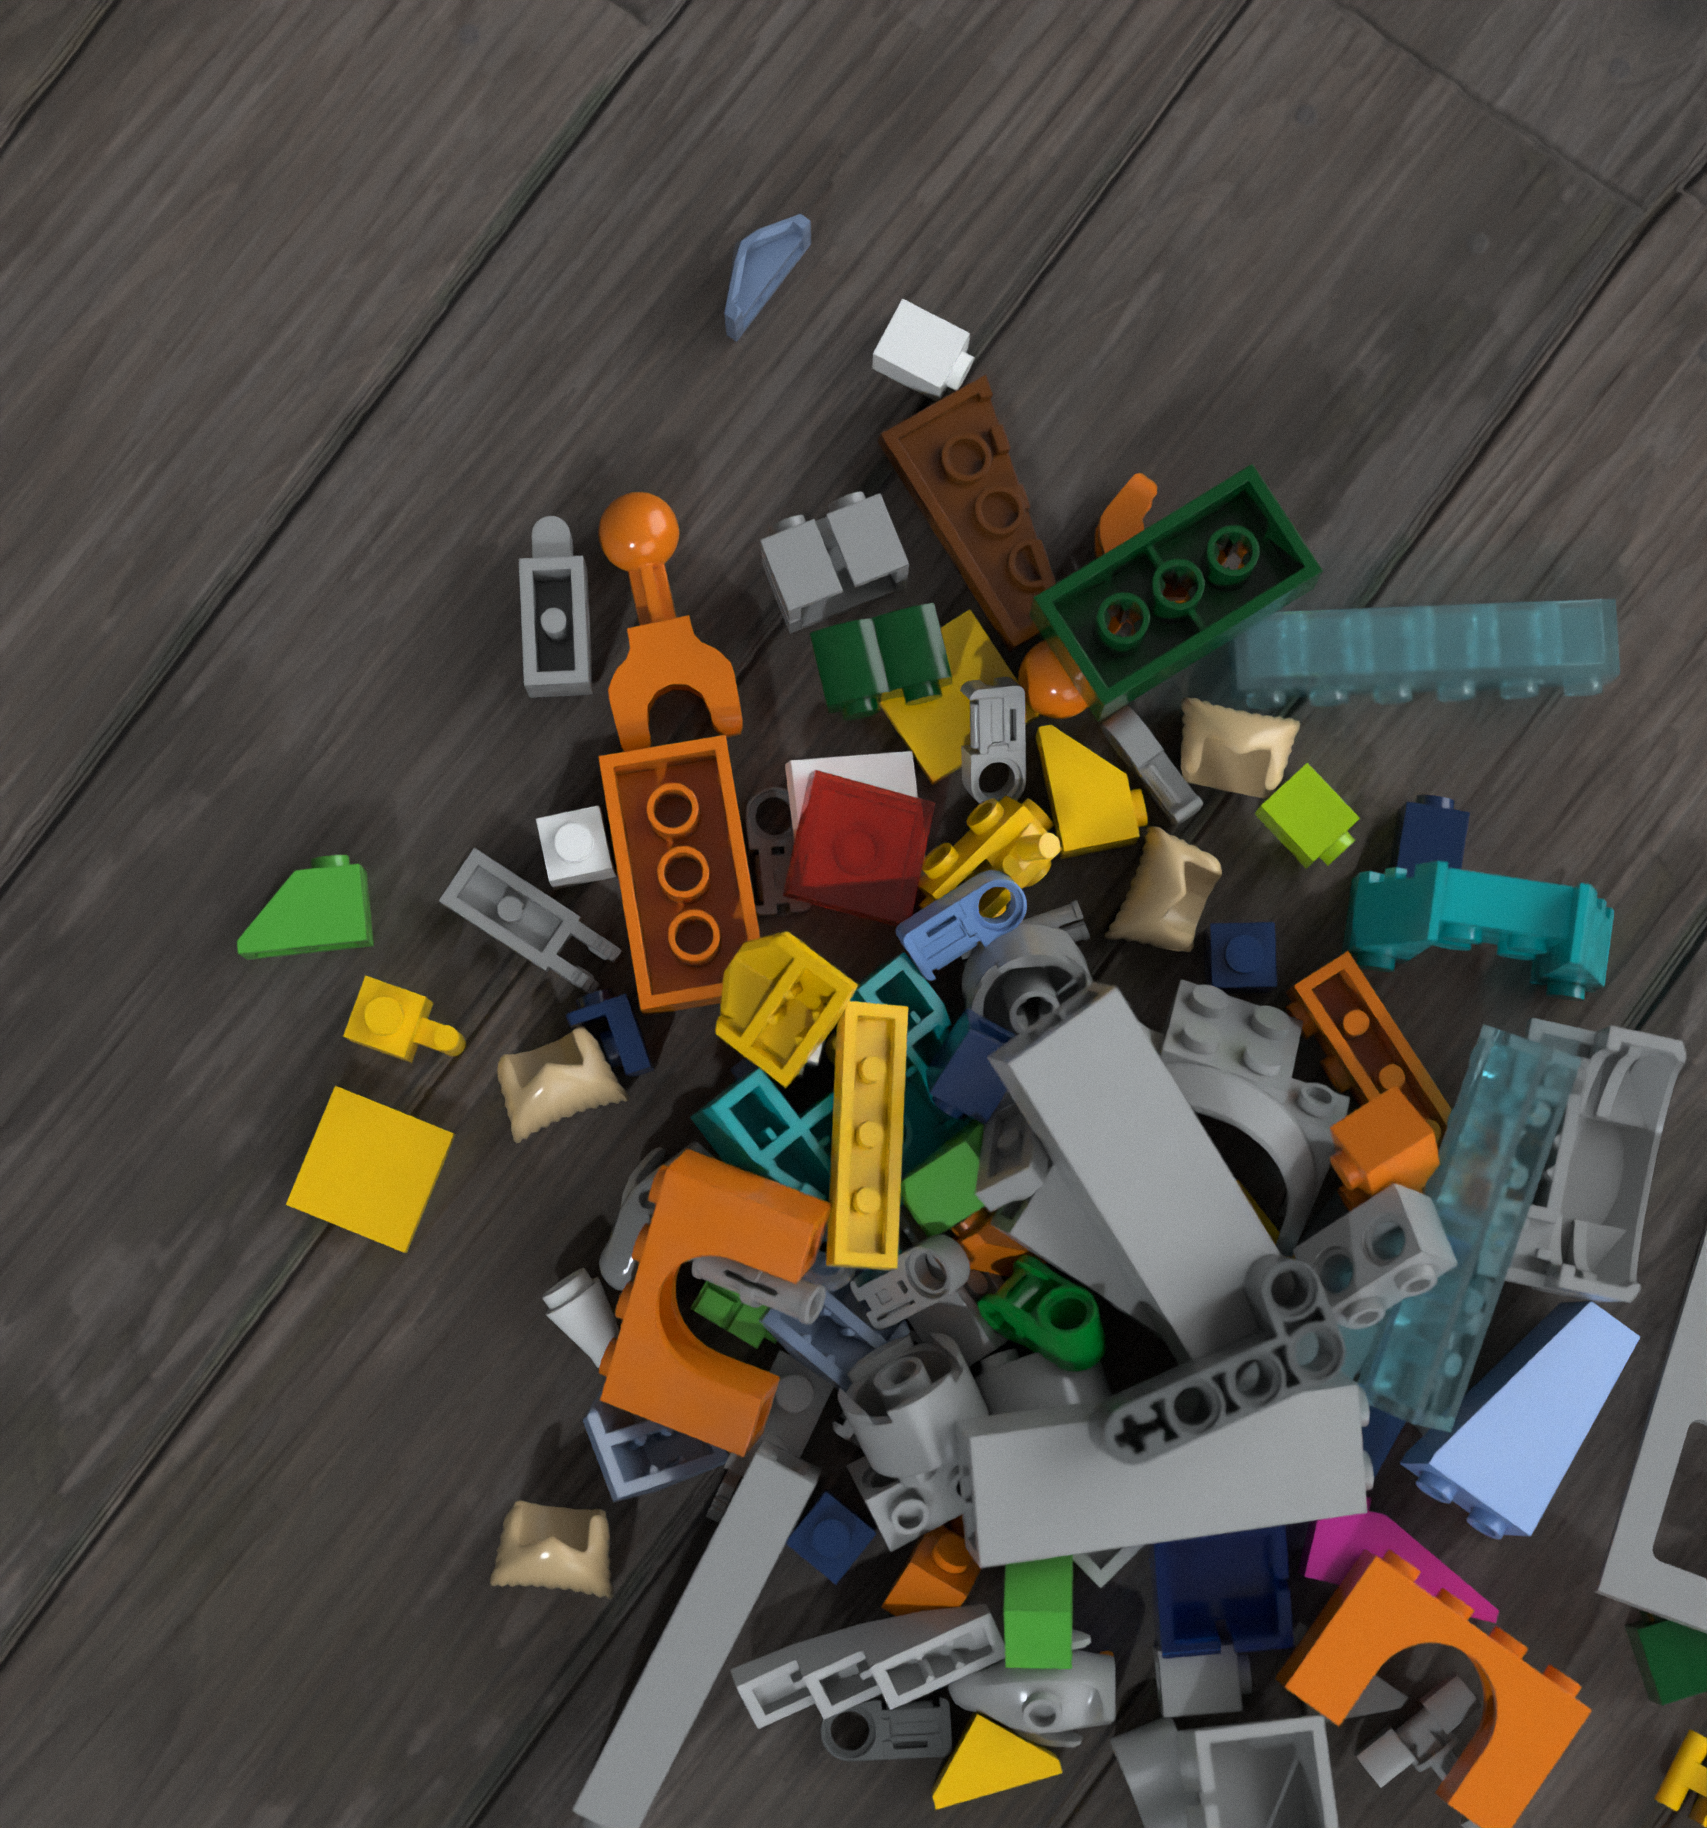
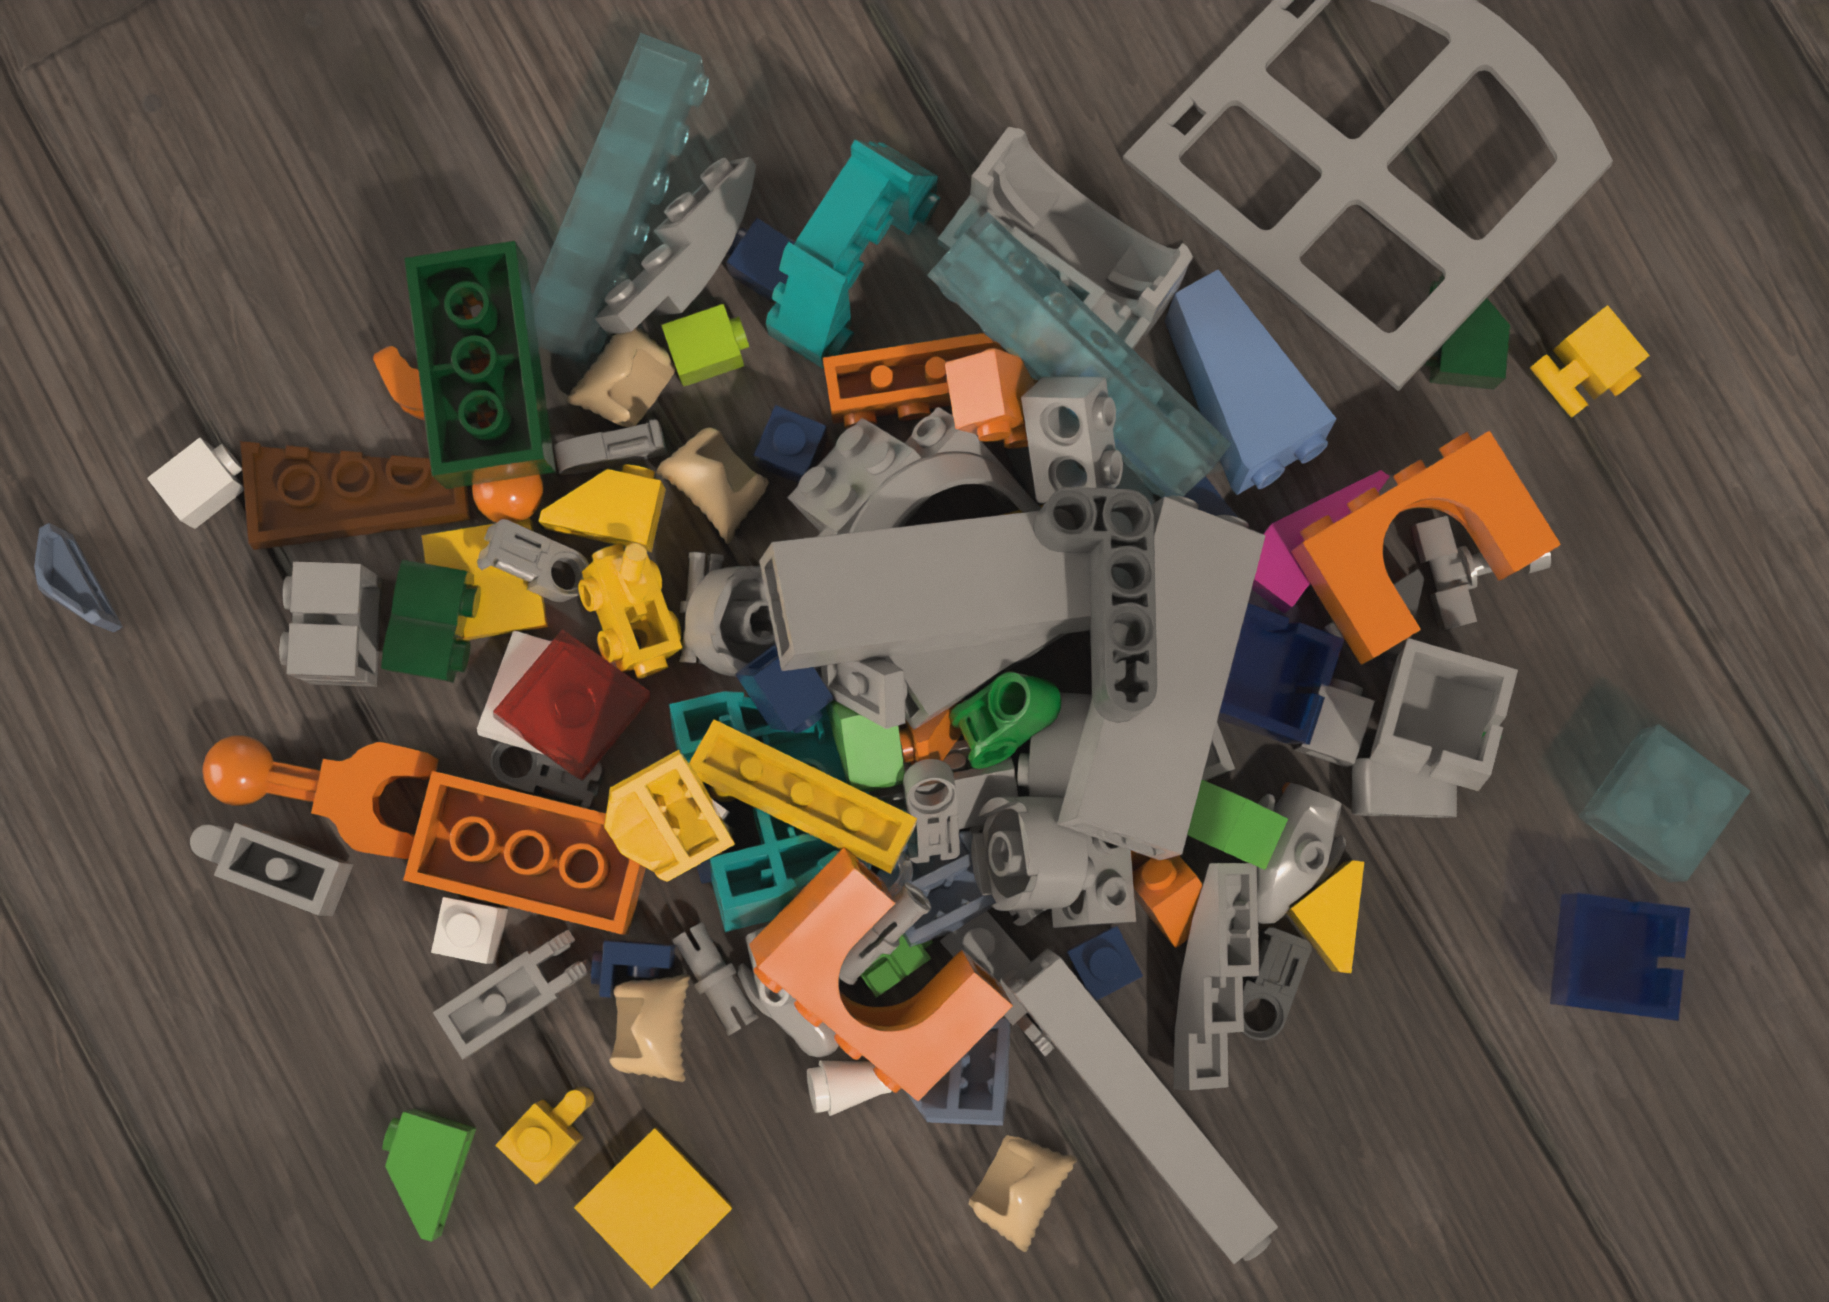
camera: 65 degrees left, 0 degrees up
(636, 1128) = (715, 978): none -> light grey pin
(955, 925) = (665, 655): medium blue piece -> none
(1416, 759) = (695, 242): none -> light grey slope

